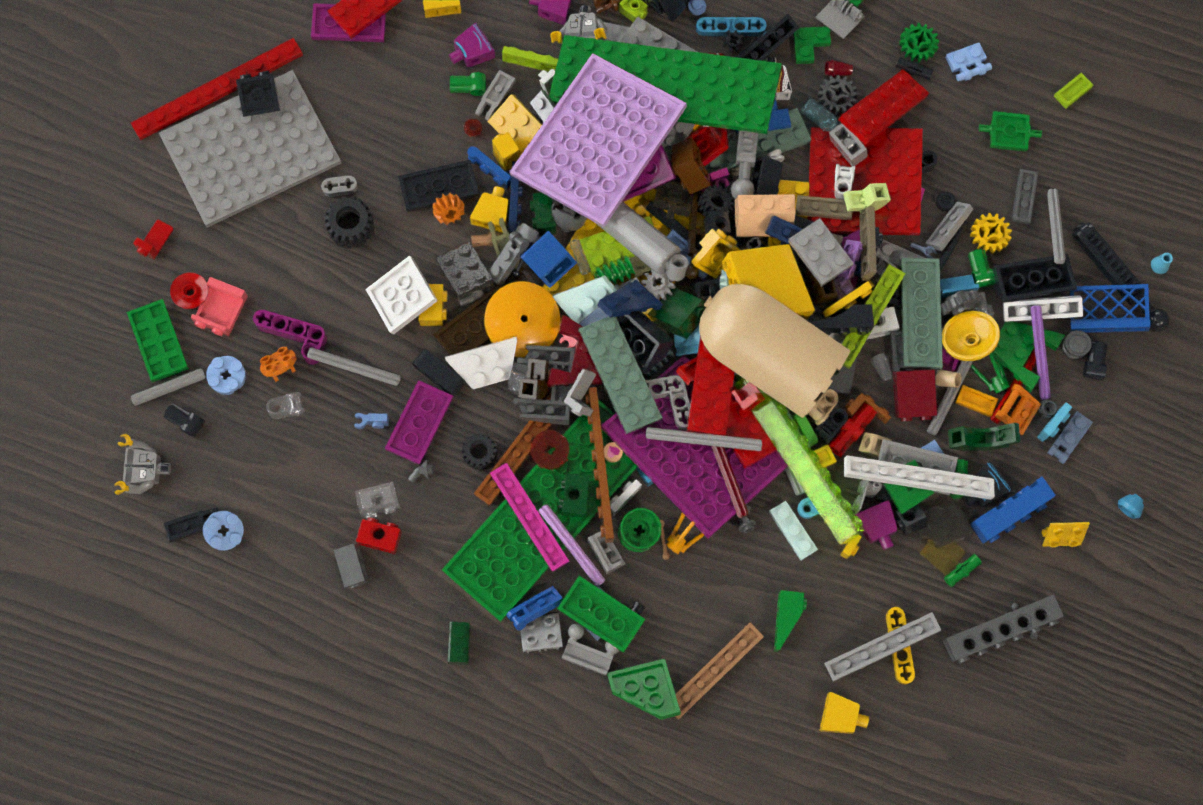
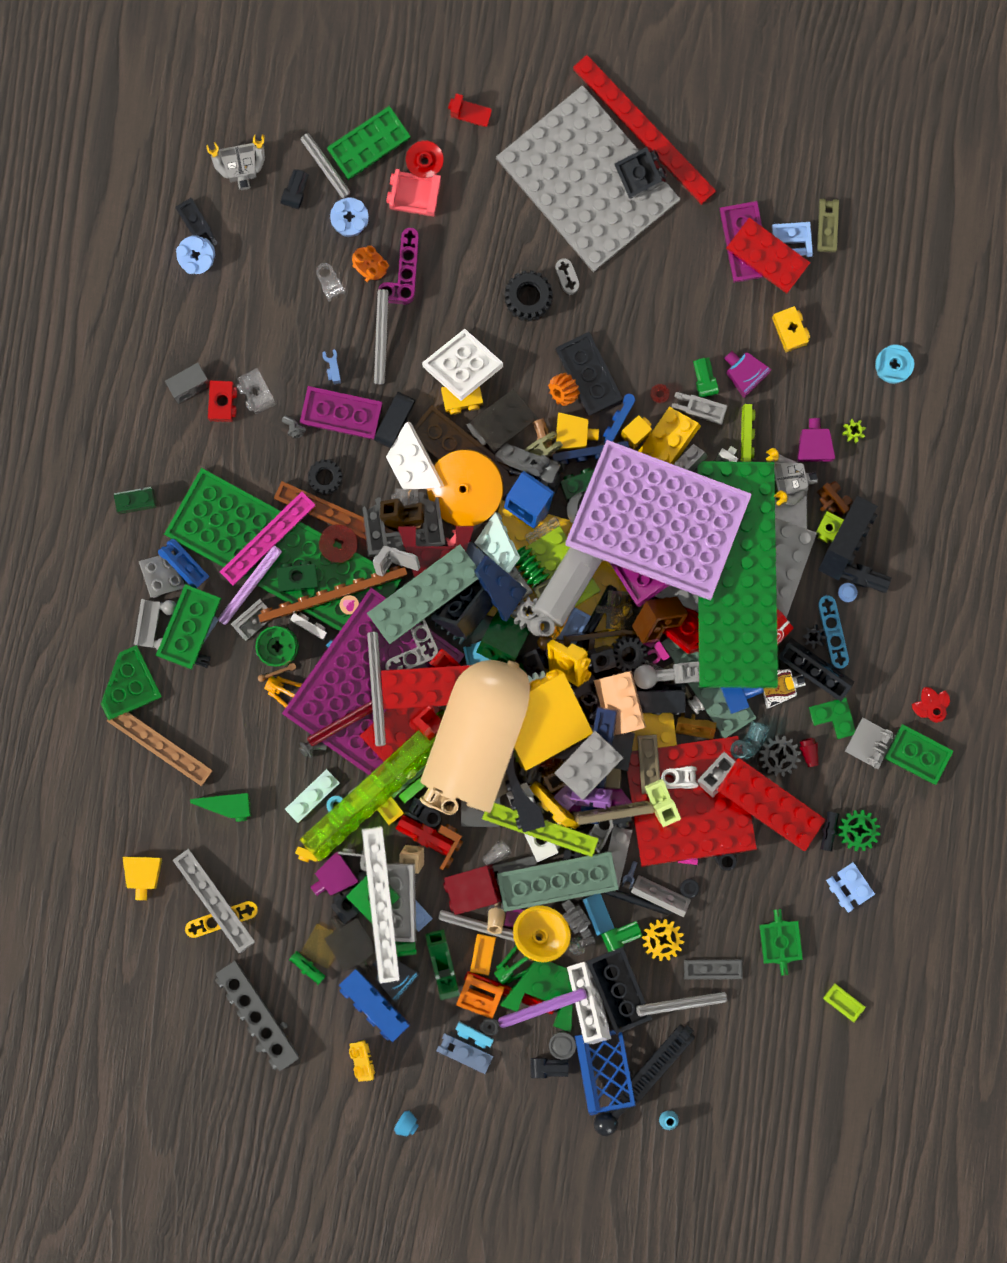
camera: 80 degrees right, 10 degrees up
(796, 162) = (694, 727): none -> pearl gold plate

